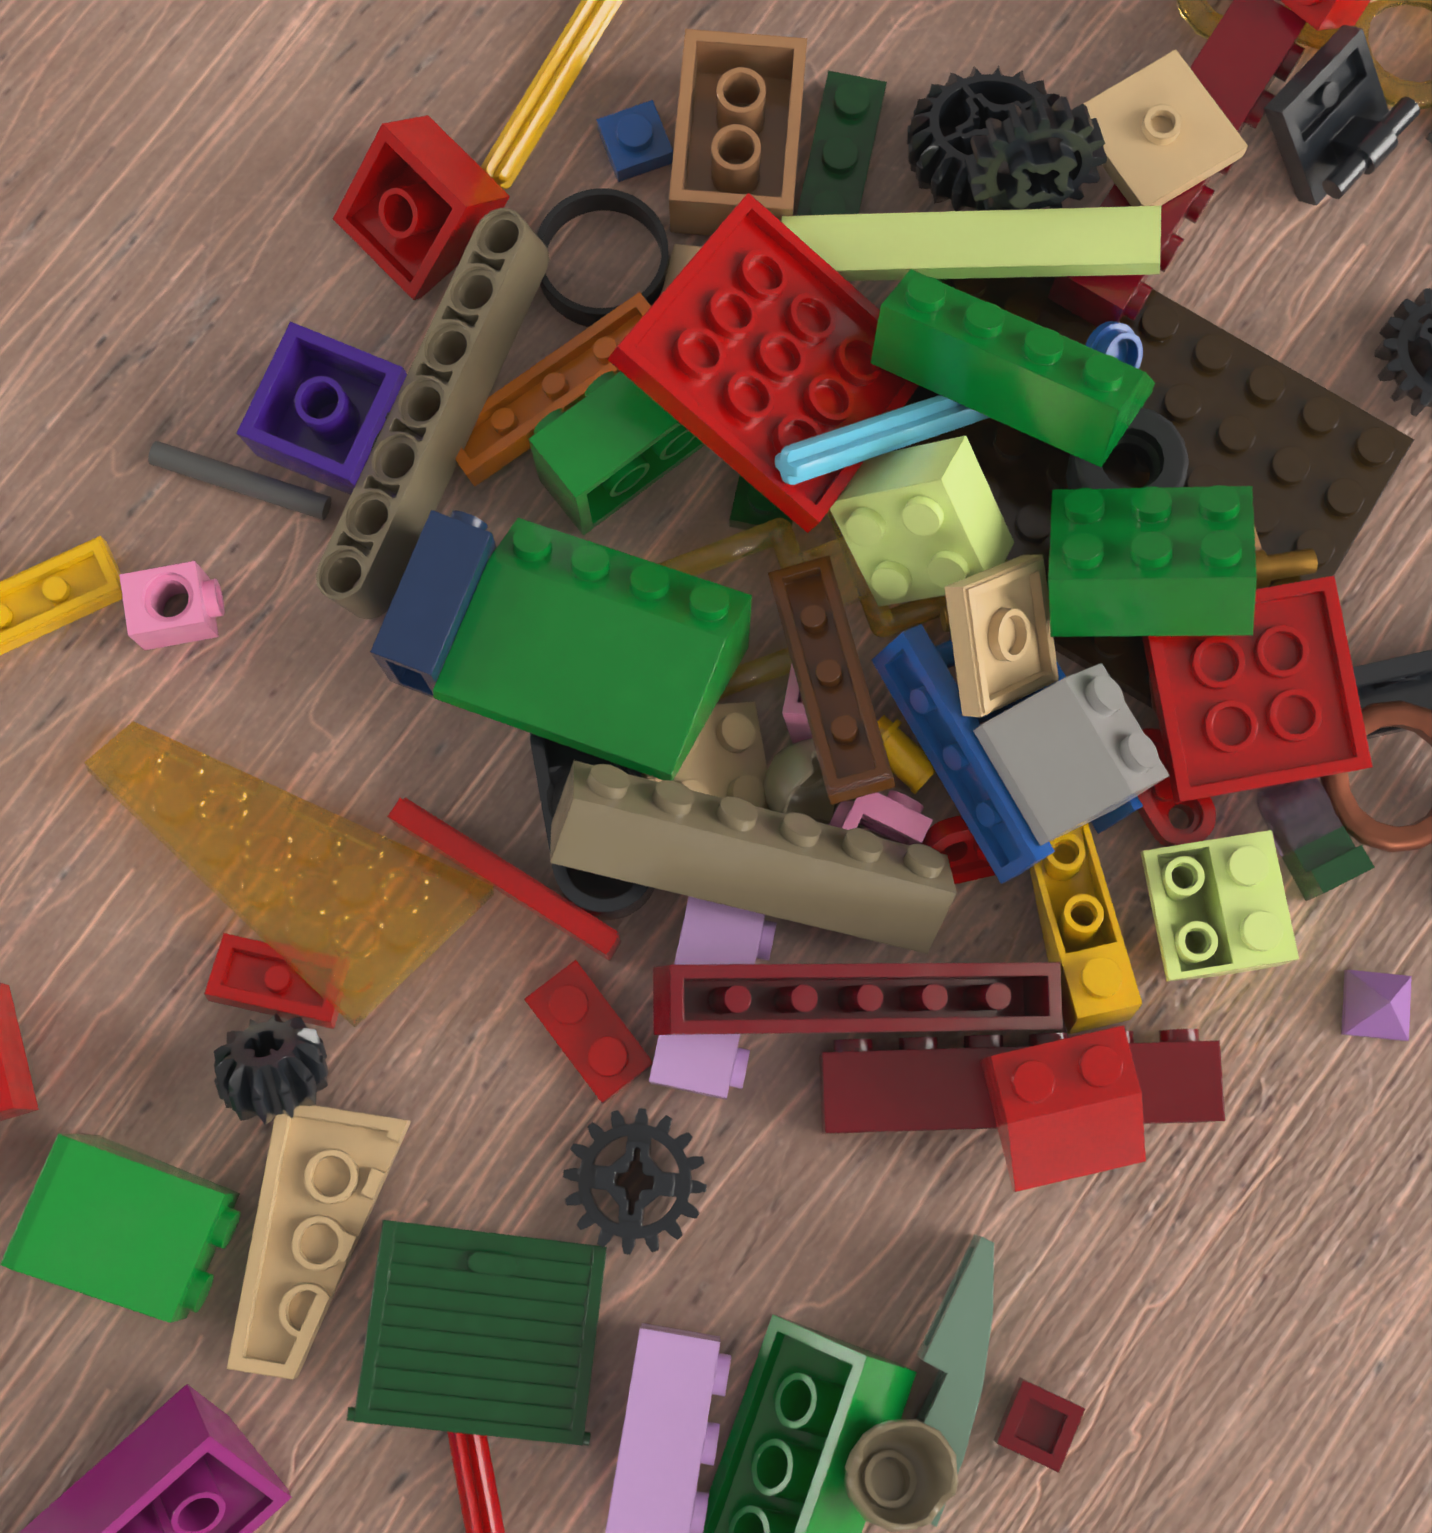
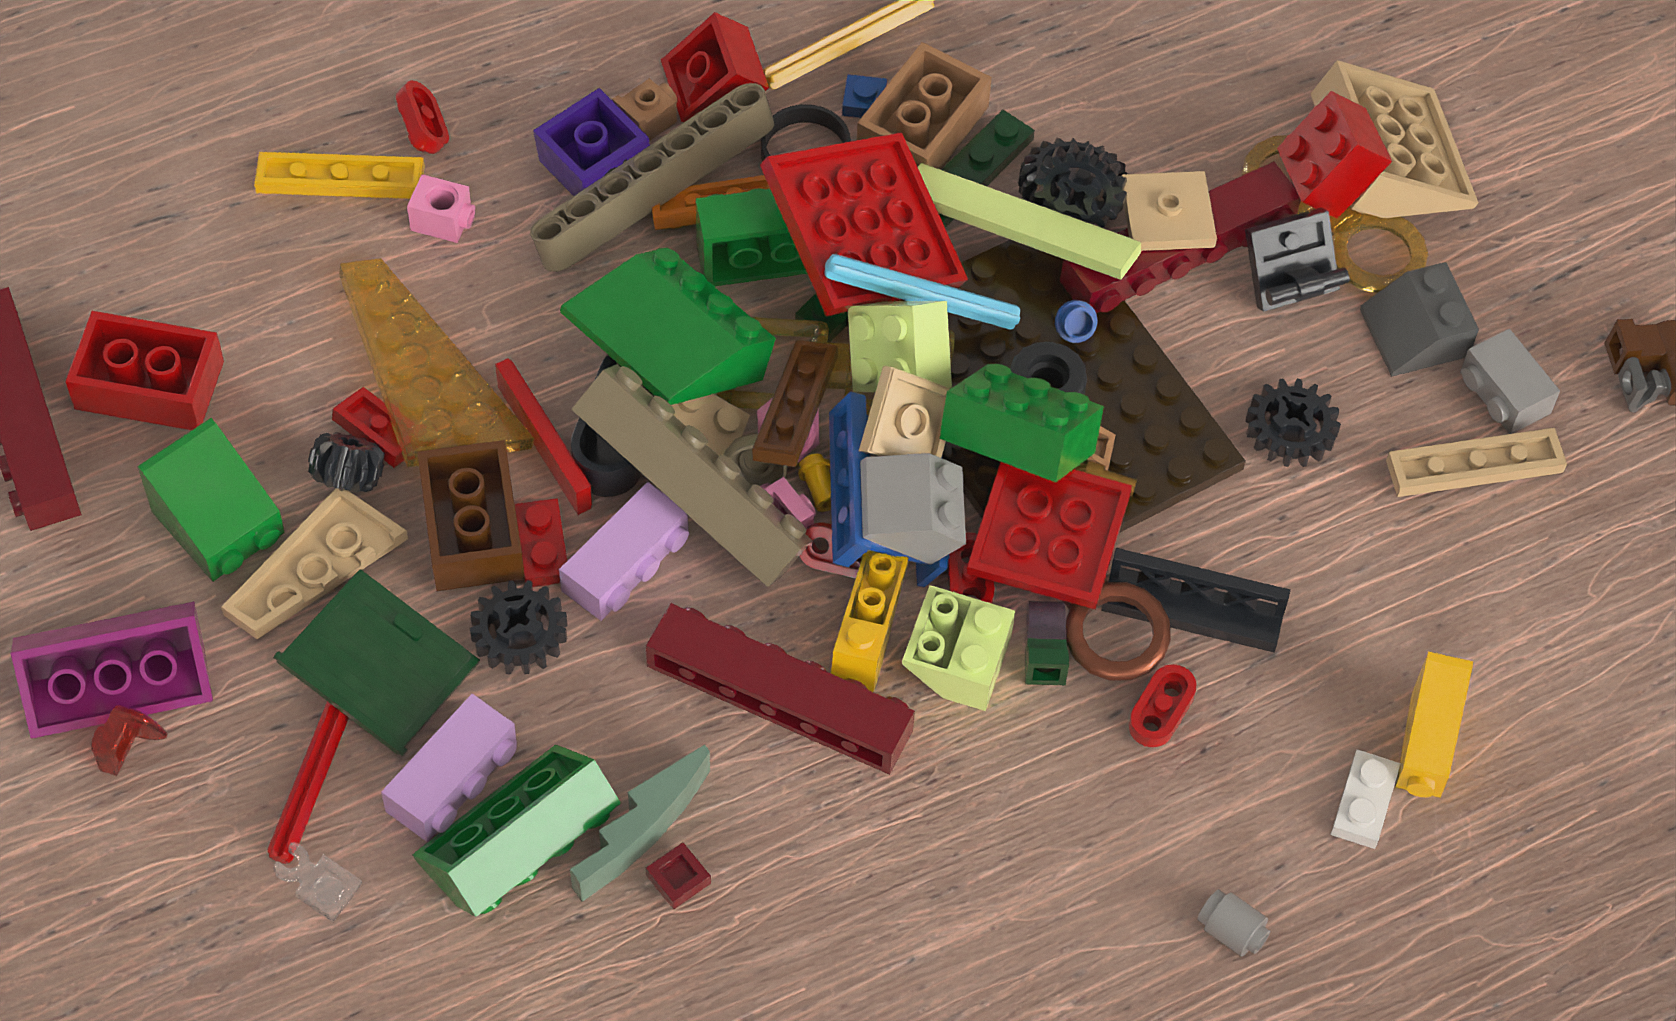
camera: 25 degrees right, 20 degrees down
(64, 476) = (422, 117): none -> red plate
(239, 480) = (520, 166): dark grey bar -> none
(368, 325) = (650, 107): none -> medium nougat brick
(432, 599) = (585, 262): dark blue brick -> none
(481, 1057) = (470, 515): none -> reddish brown brick
(855, 998) = (706, 574): dark red brick -> none
(901, 1474) = (575, 829): dark tan hair -> none
(1008, 367) = (1000, 286): green slope -> none
(1067, 1107) = (795, 688): red slope -> none
(1376, 1005) = (1033, 758): medium lavender slope -> none

